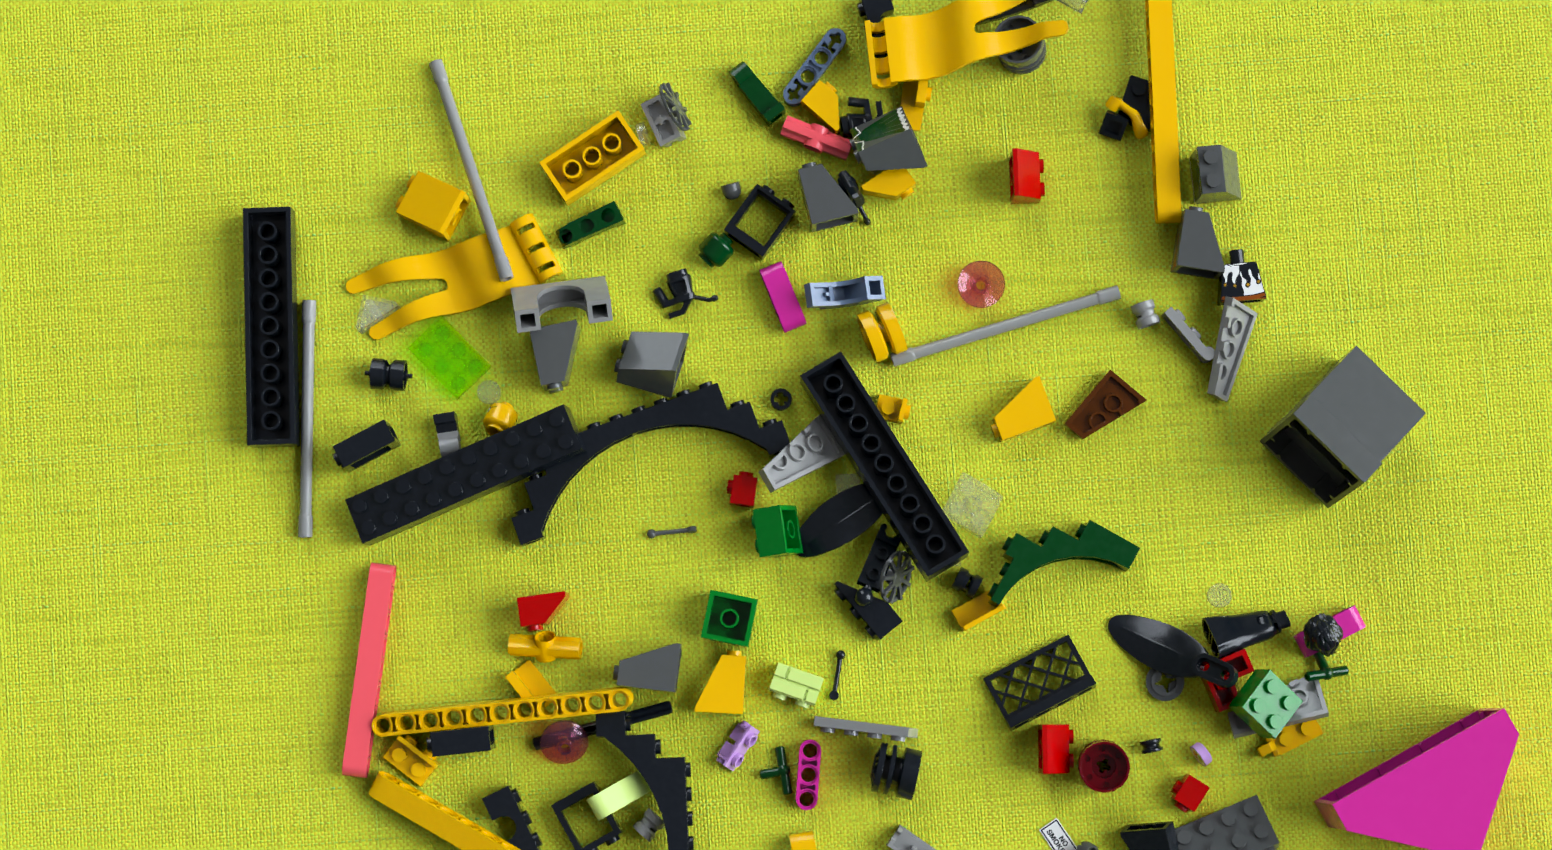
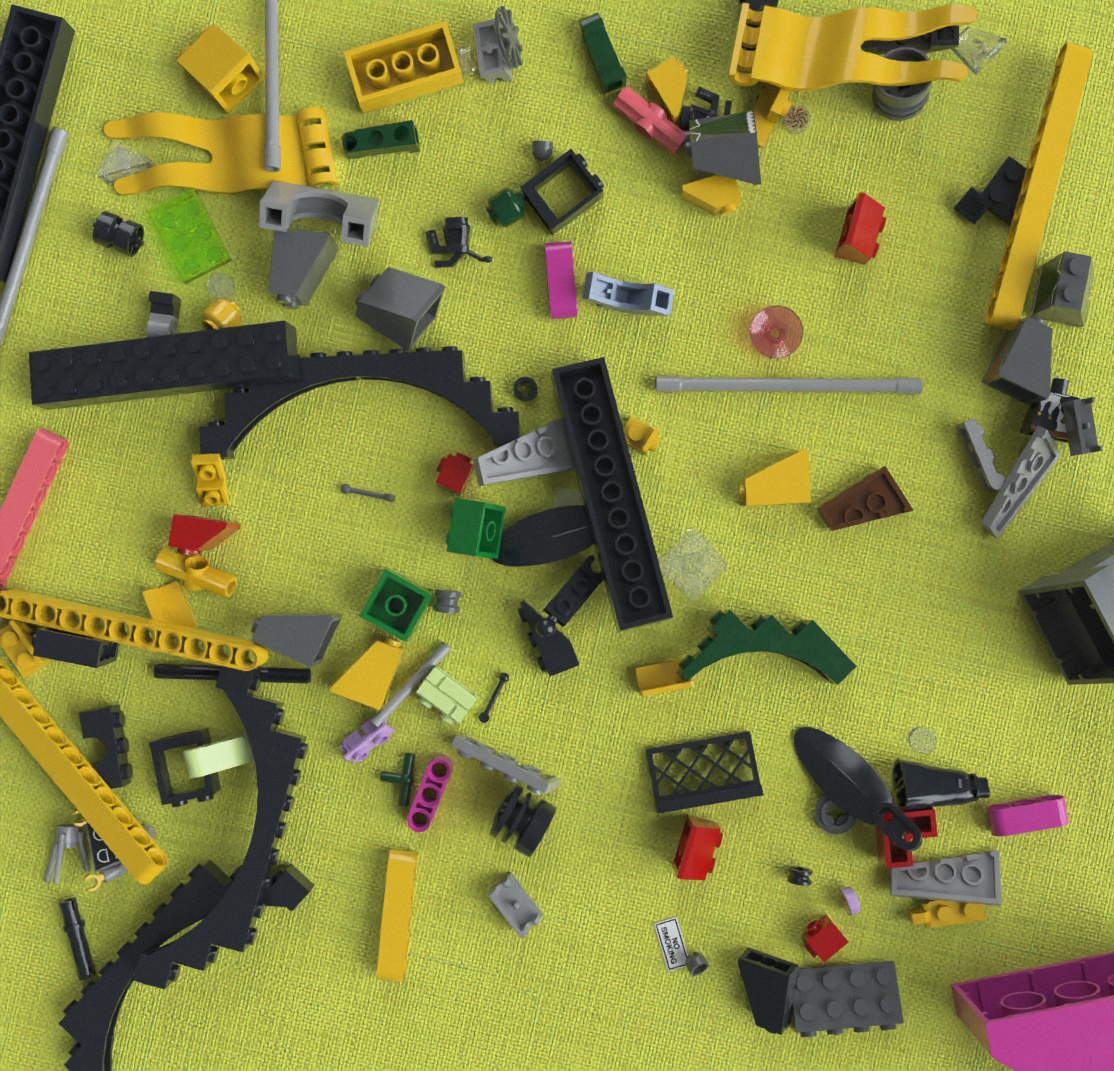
camera: 15 degrees right, 5 degrees up
(366, 446) = (69, 302): black window -> none
(533, 561) = (211, 479): none -> yellow slope
(563, 733) = (185, 679): clear pink dish -> none
(649, 825) = (245, 794): light grey wheel -> none
(762, 684) = (411, 684): none -> light grey bar
(771, 603) = (447, 601): none -> dark grey wheel
(816, 68) = (671, 43): sand blue beam -> none
(824, 199) = (638, 187): dark grey slope -> none
(850, 187) = (668, 187): black piece -> none
(879, 333) = (654, 350): yellow wheel -> none
(895, 576) = (586, 615): dark grey wheel -> none
(941, 98) = (796, 119): none -> tile
(962, 579) = (656, 639): black wheel -> none
(1108, 779) = (748, 898): dark red wheel -> none
(1139, 128) = (1000, 214): yellow piece -> none
(1145, 314) = (941, 418): light grey wheel -> none
(1263, 285) = (1080, 426): none -> dark grey hinge
(1265, 703) = (939, 876): brick -> none
(1322, 634) = (1024, 821): black hair -> none
(1325, 671) = (1009, 856): dark green piece -> none

